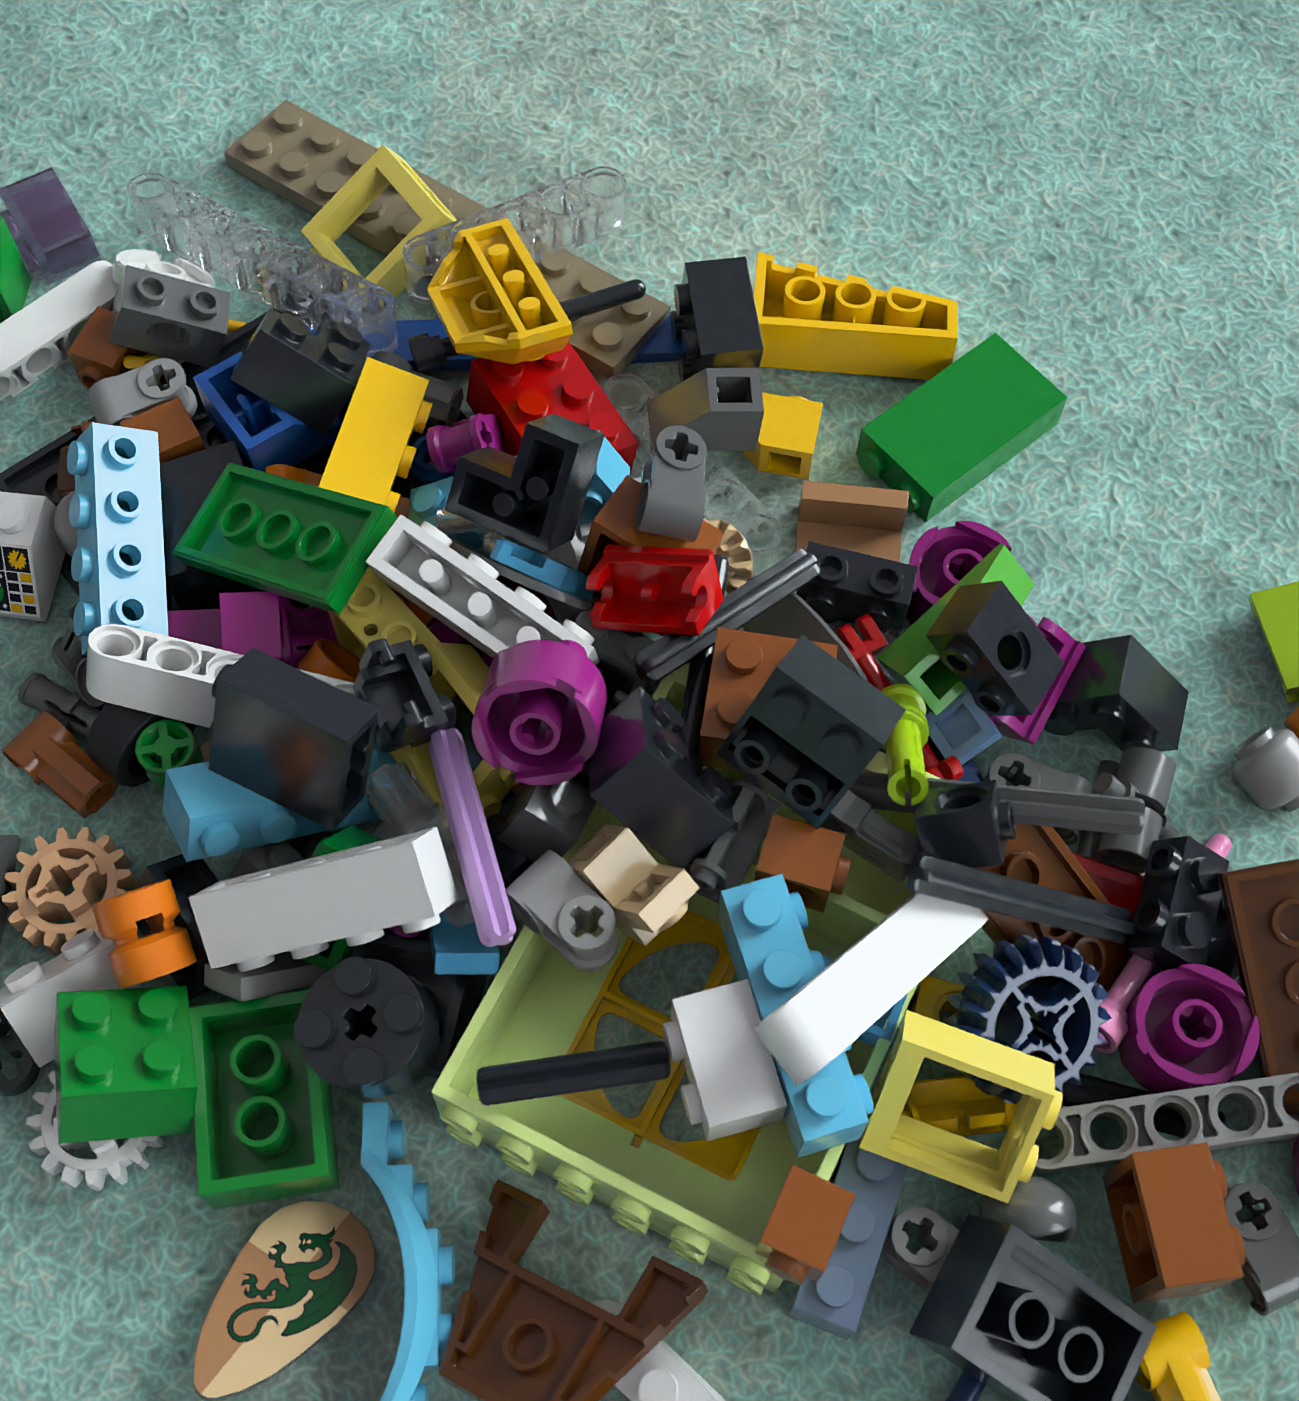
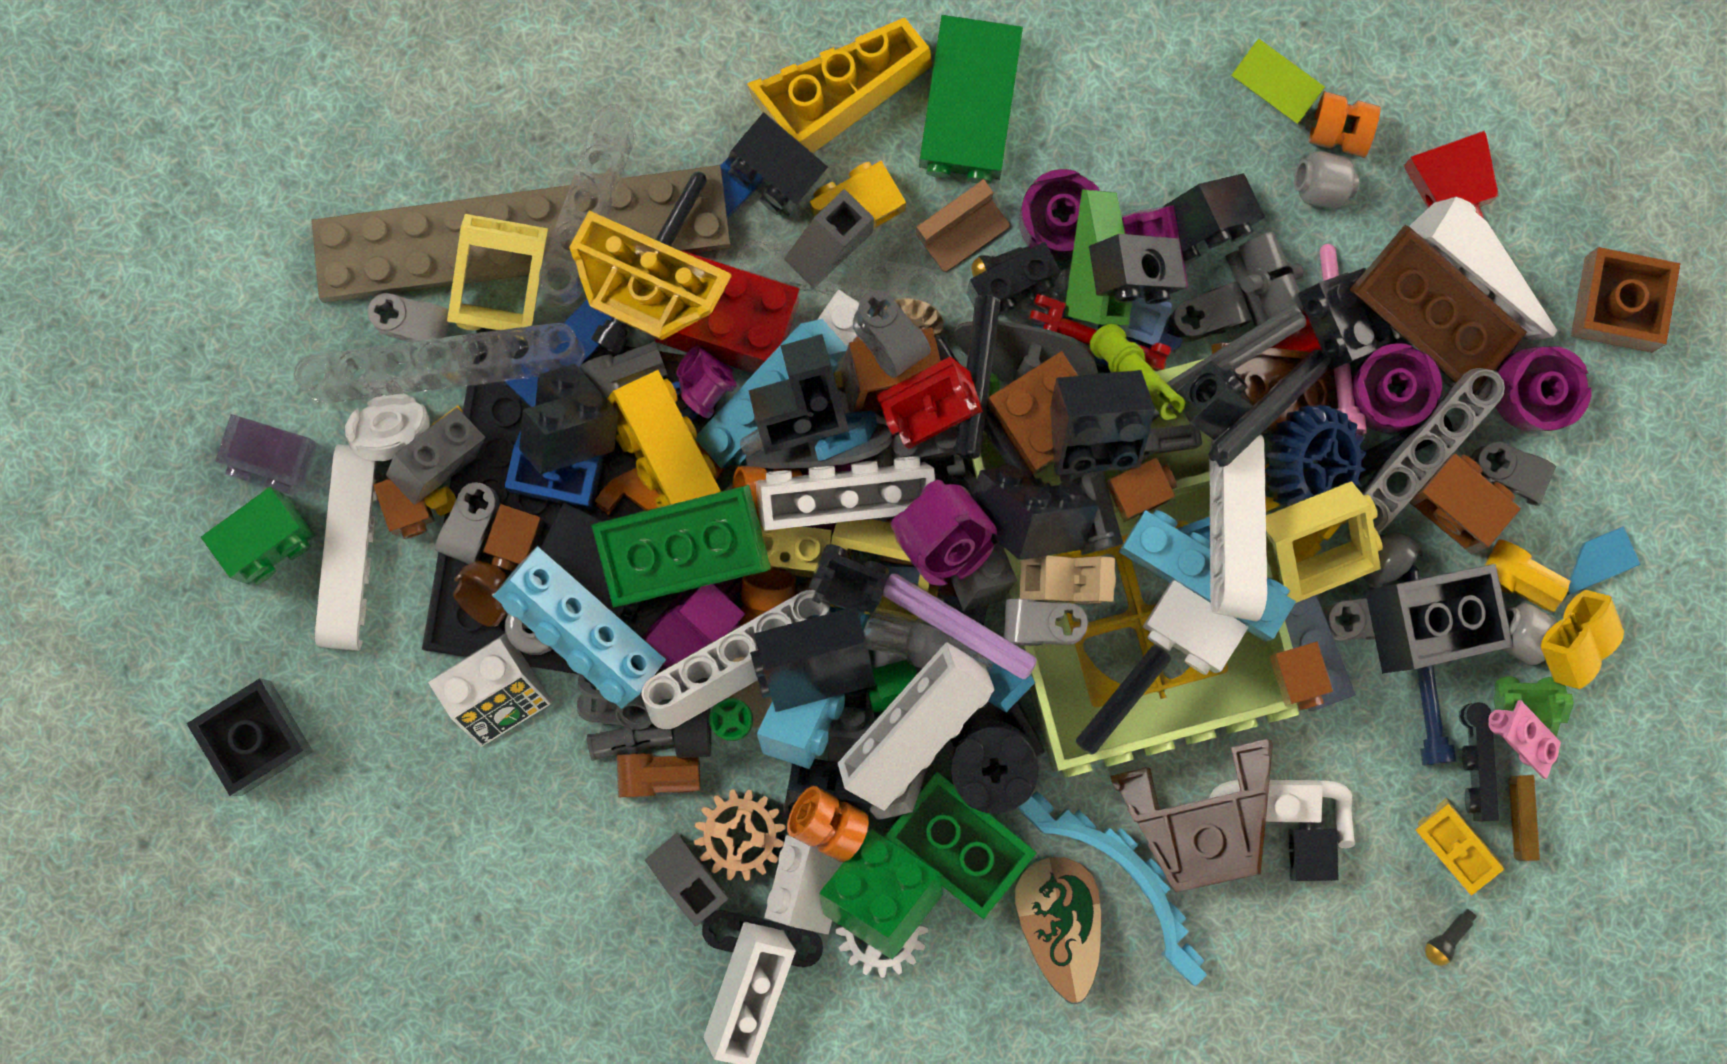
camera: 40 degrees left, 20 degrees up
(274, 208) = (415, 318): none -> light grey piece

